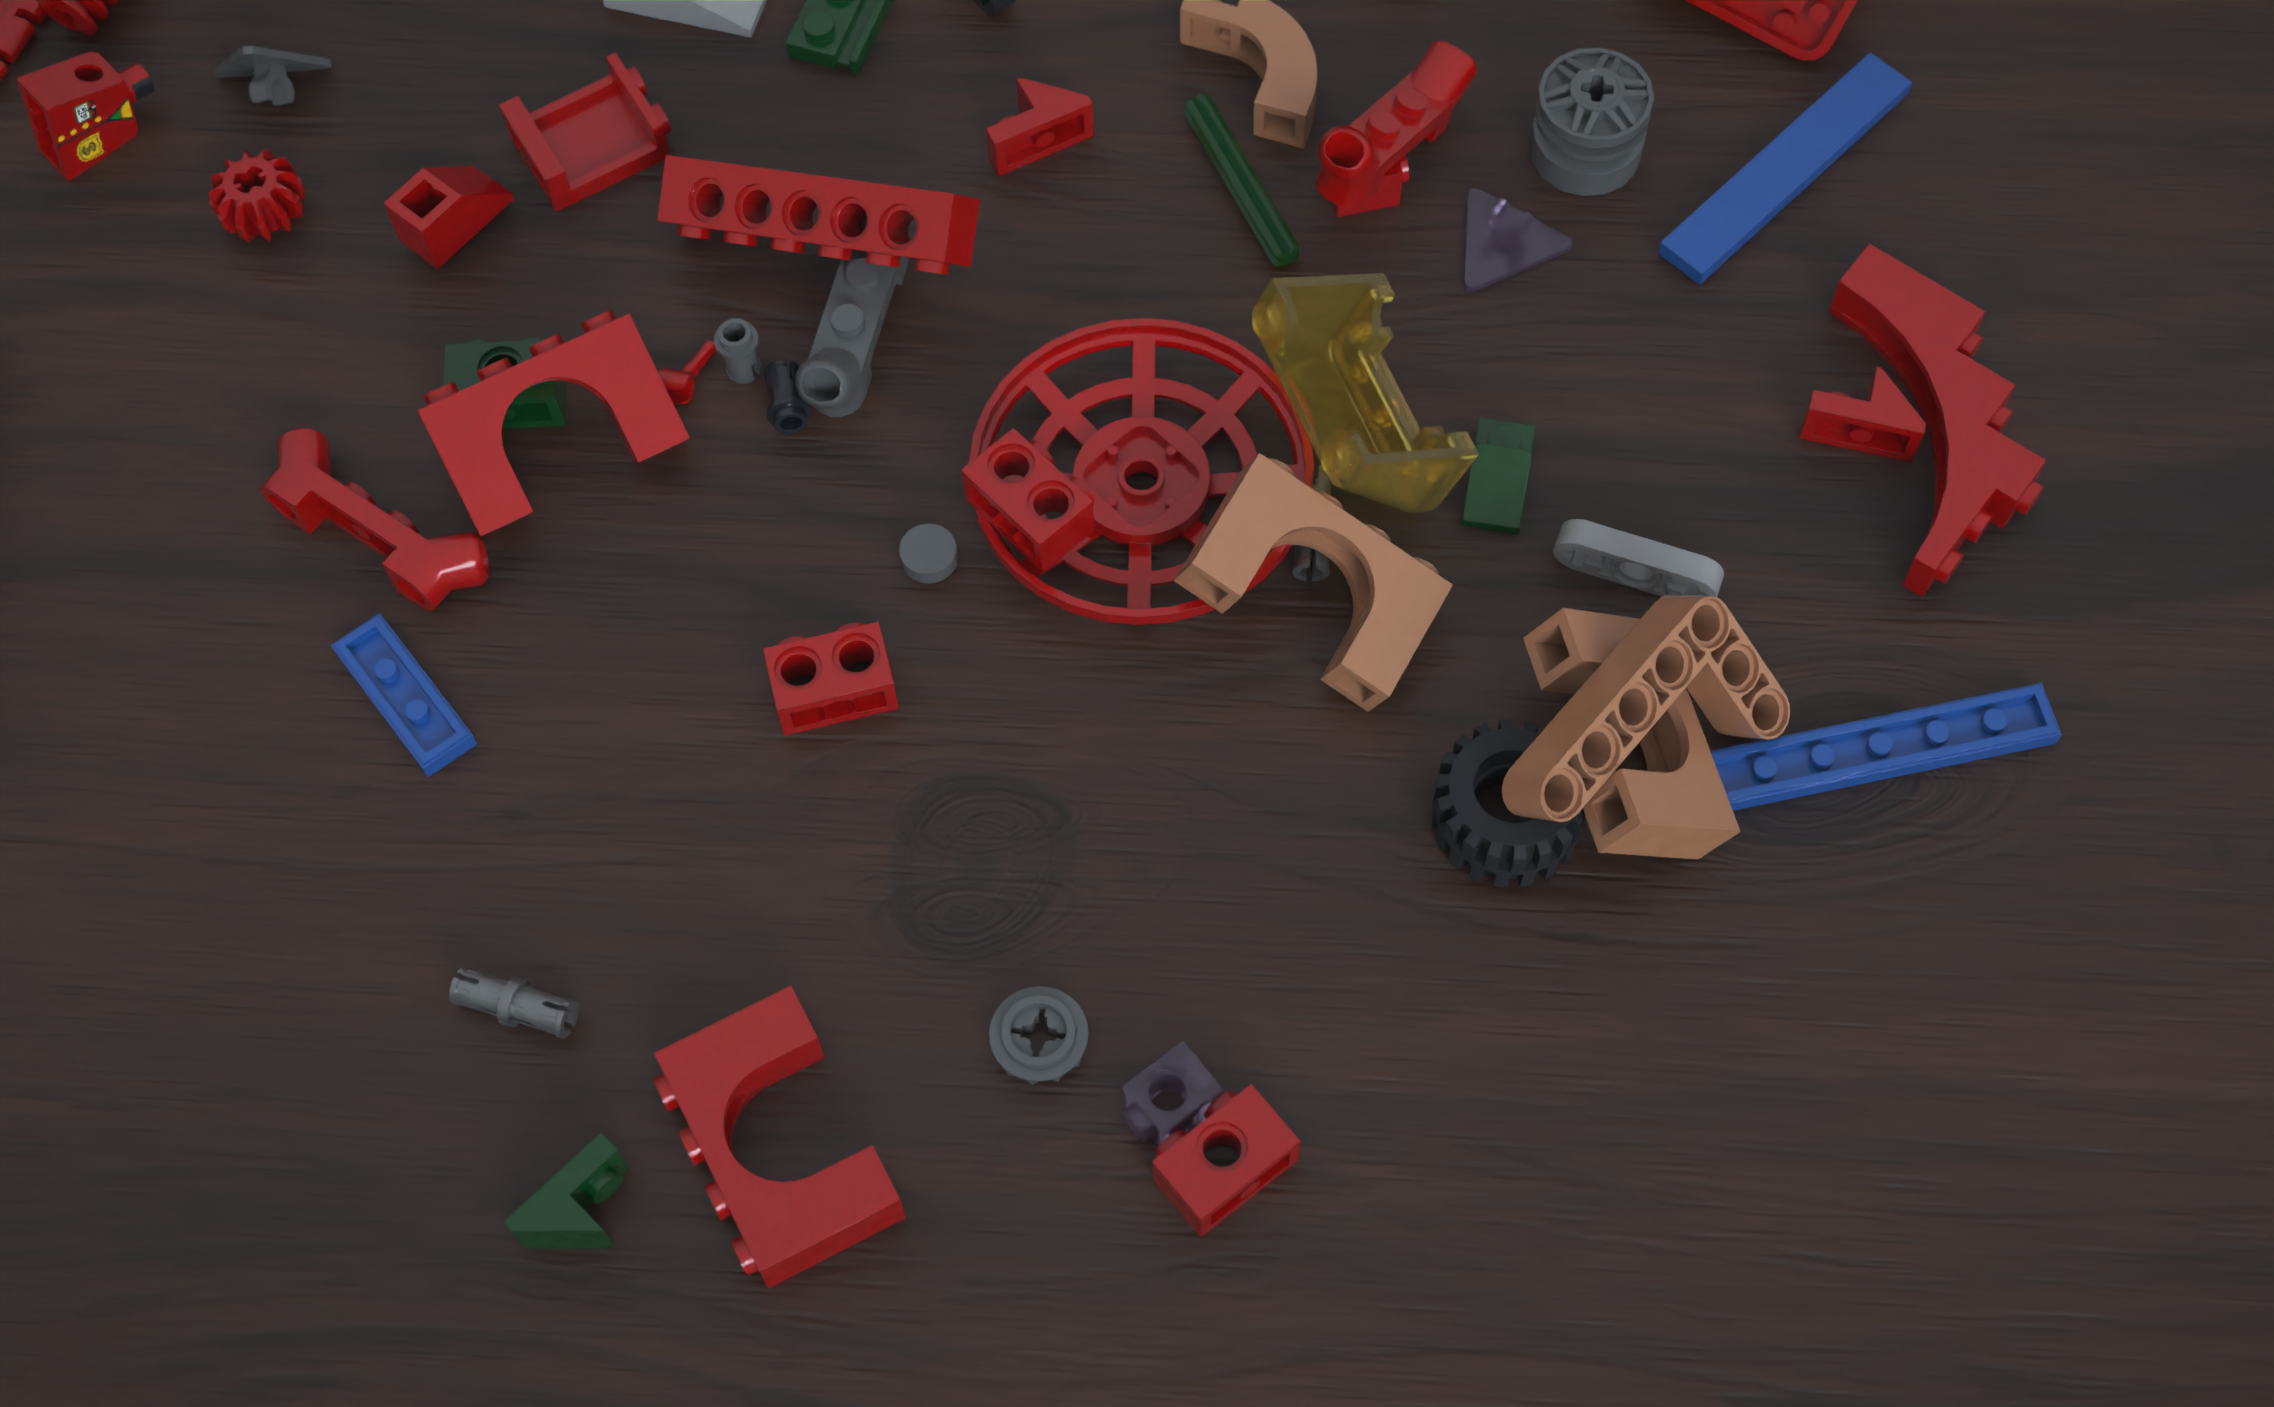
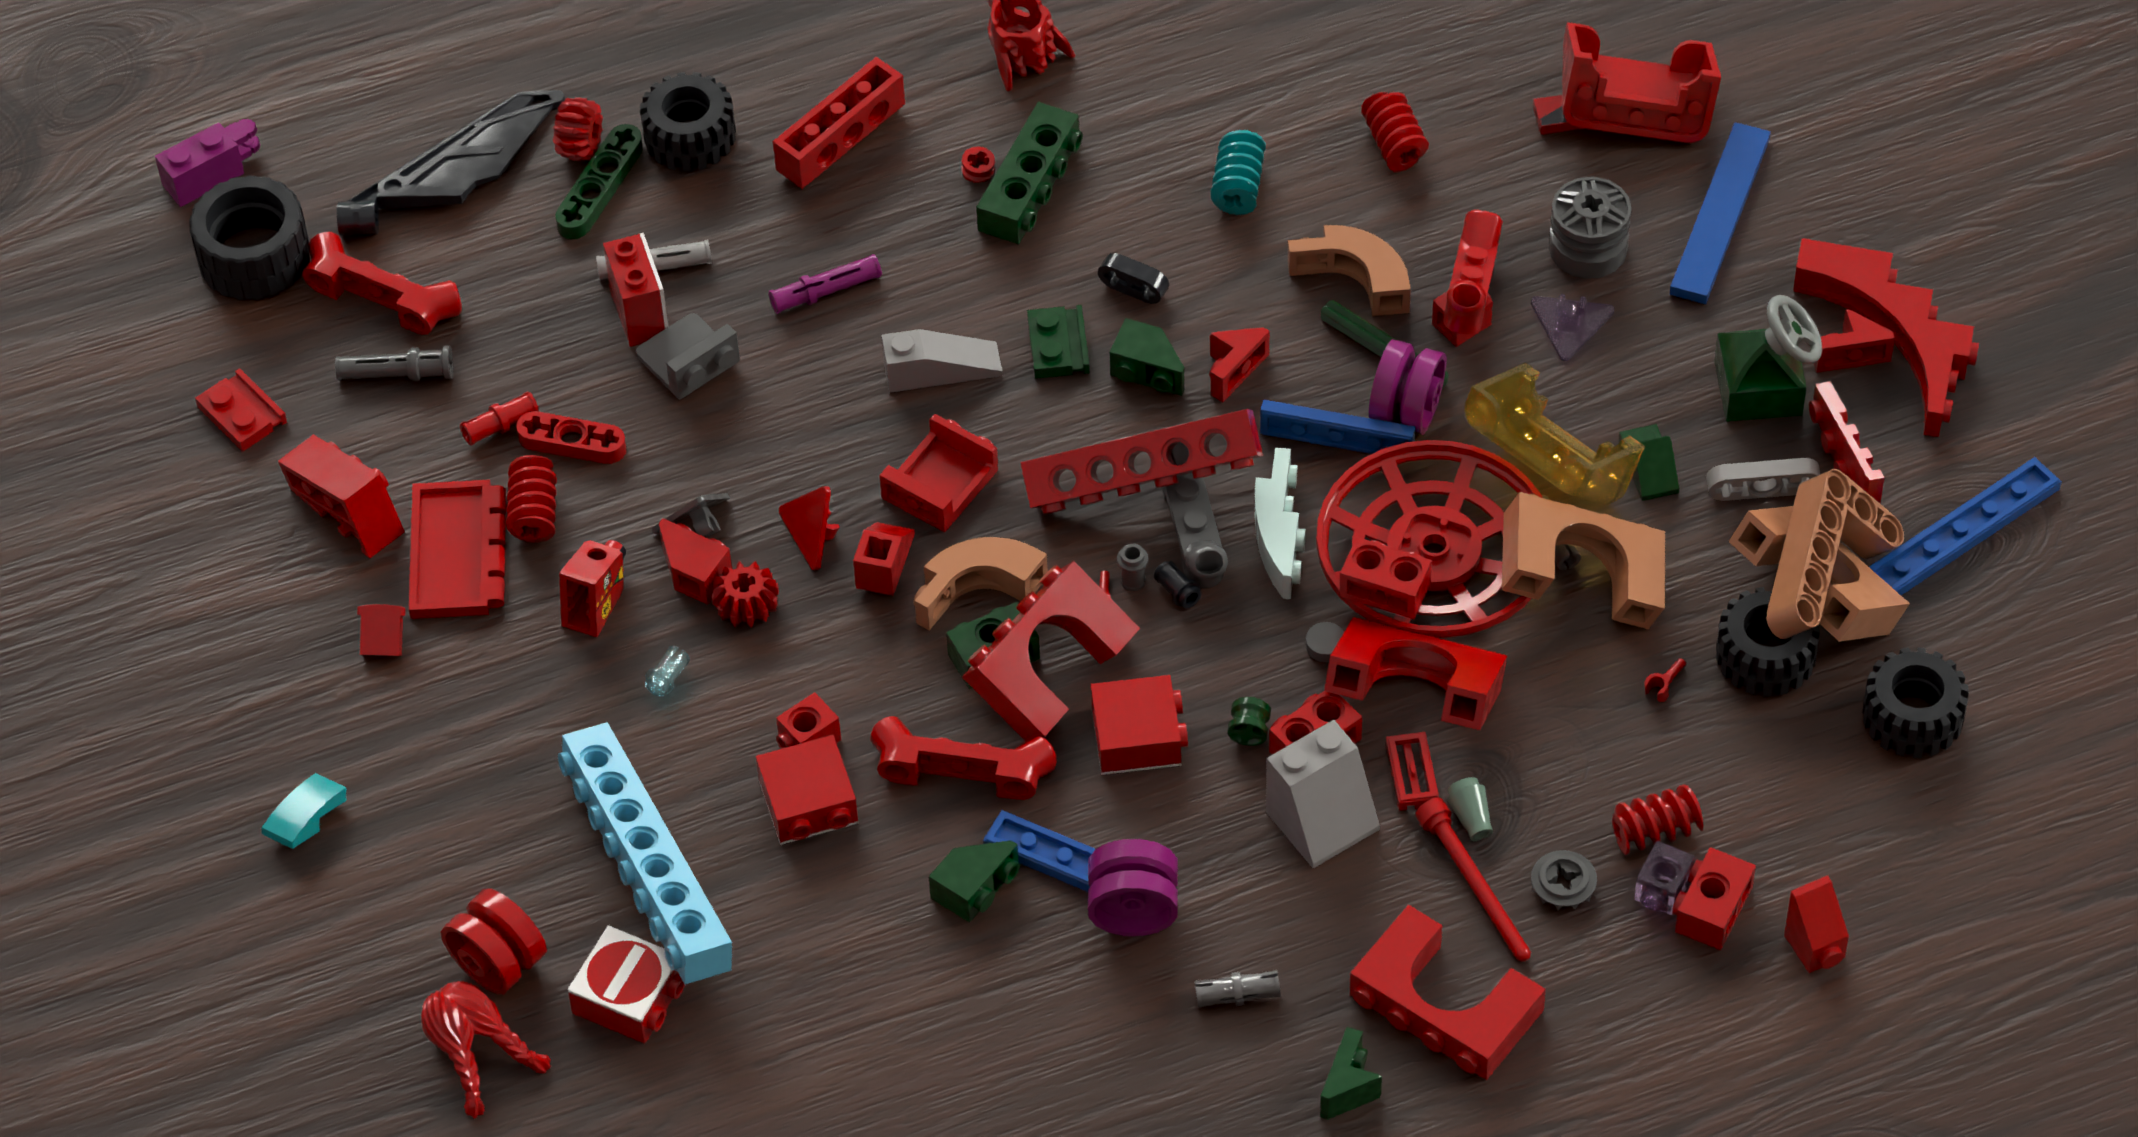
camera: 25 degrees left, 10 degrees down
(106, 258) = (662, 677): none -> clear light blue pin
(158, 484) = (807, 789): none -> red piece
(219, 121) = (693, 560): none -> red slope
(233, 406) = (811, 715): none -> red brick
(281, 691) = (972, 876): none -> dark green slope
(393, 138) = (808, 525): none -> red piece
(449, 799) = (1133, 887): none -> magenta wheel
(537, 269) = (975, 565): none -> nougat arch
(611, 568) = (1138, 724): none -> red piece
(757, 623) = (1249, 721): none -> dark green wheel
(770, 772) = (1320, 794): none -> light grey slope
(918, 827) = (1417, 797): none -> red tile
(919, 868) = (1436, 818): none -> red piece
(925, 77) = (1146, 357): none -> dark green slope
(951, 371) = (1278, 525): none -> light aqua slope
(974, 593) = (1377, 650): none -> red arch
(974, 871) = (1471, 807): none -> sand green cone
(1104, 264) = (1331, 428): none -> blue tile
(1206, 1003) = (1656, 816): none -> red piece
(1221, 245) = (1407, 385): none -> magenta wheel
(1338, 1276) = (1816, 925): none -> red slope
(1343, 797) = (1663, 680): none -> red hand
(1688, 942) = (1920, 677): none -> black tyre
(1723, 399) = (1763, 368): none -> dark green piece
(1773, 550) = (1843, 440): none -> red wing

